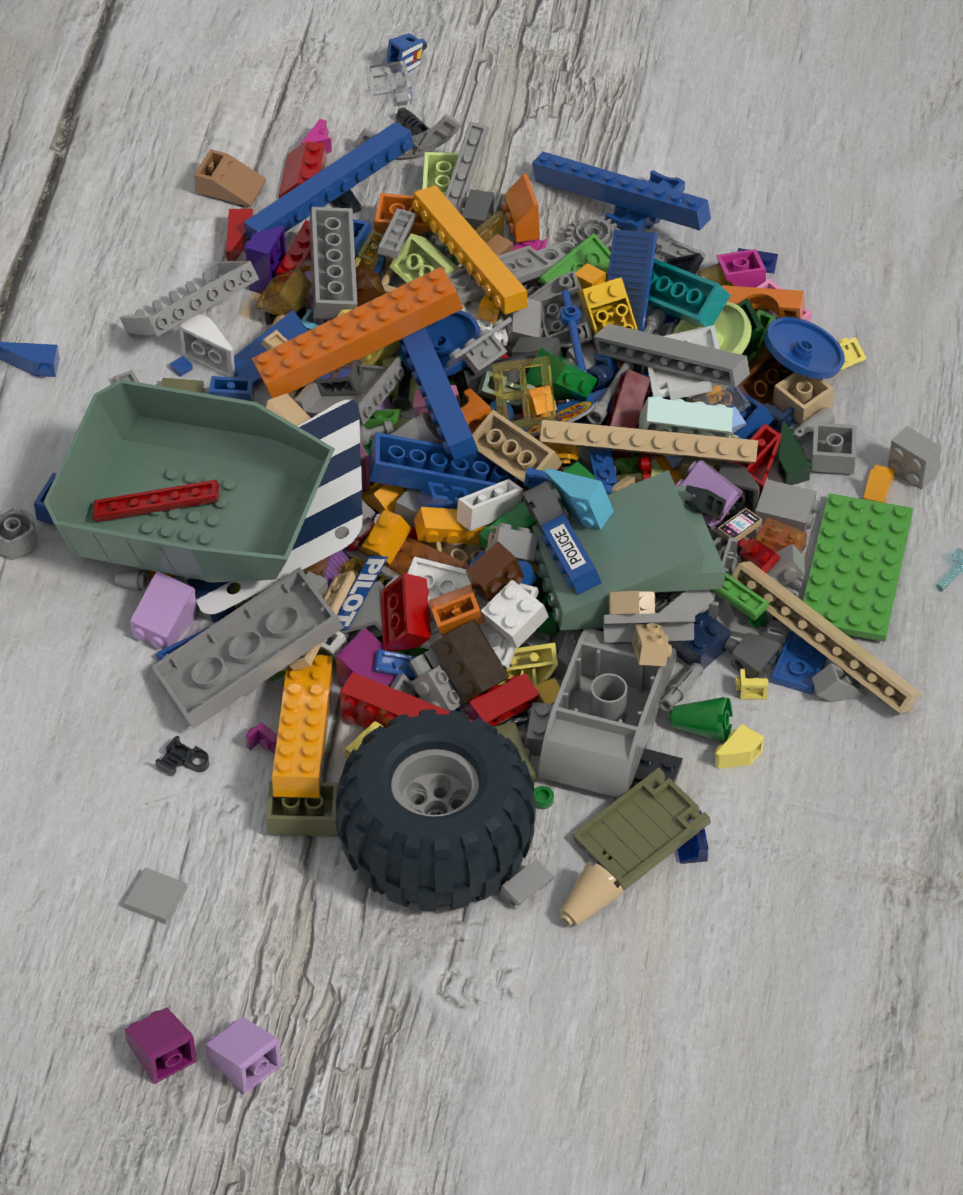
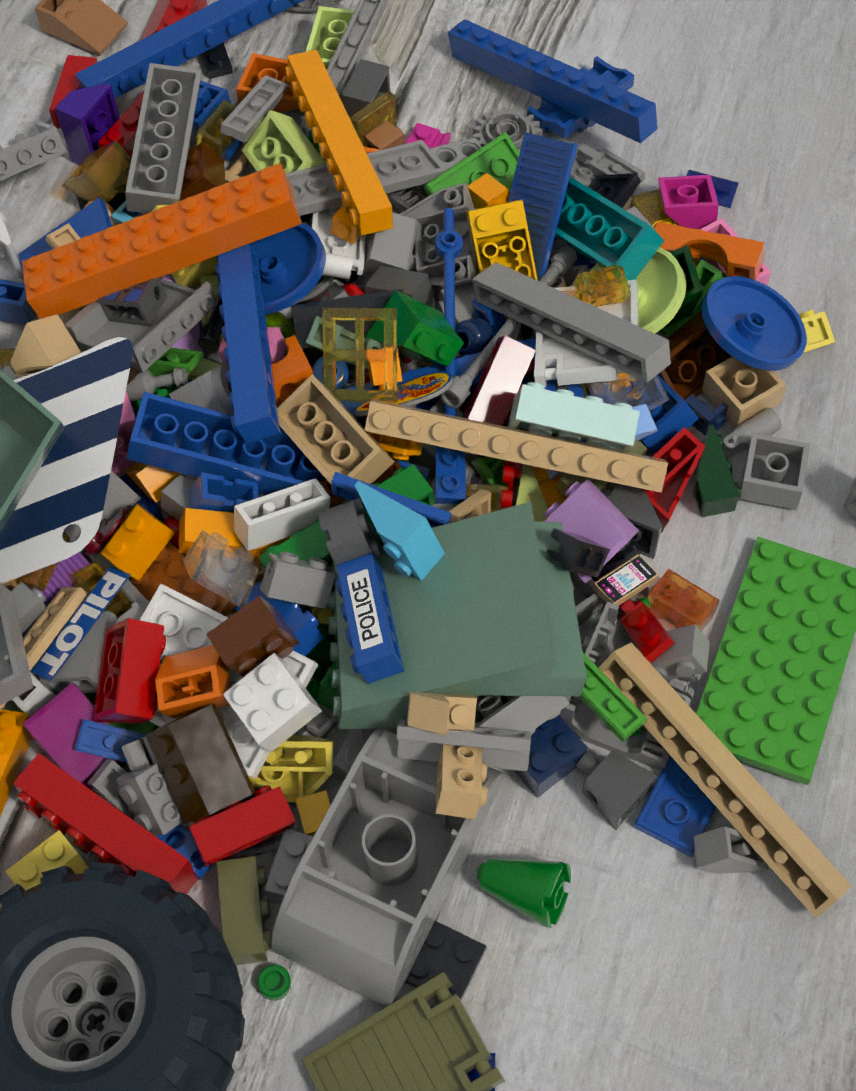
camera: 10 degrees right, 10 degrees up
(454, 541) = (221, 567): none -> clear slope
(484, 350) = (319, 285): light grey bracket -> none
(522, 211) = (421, 94): orange slope -> none
(677, 691) = (496, 834): light grey pin -> none
(691, 330) = (603, 285): none -> clear yellow piece
(740, 748) = (573, 941): light yellow slope -> none
(751, 687) = (605, 840): light yellow bracket -> none
(787, 505) = (697, 552): light grey brick -> none
(879, 483) = (829, 530): light orange slope -> none

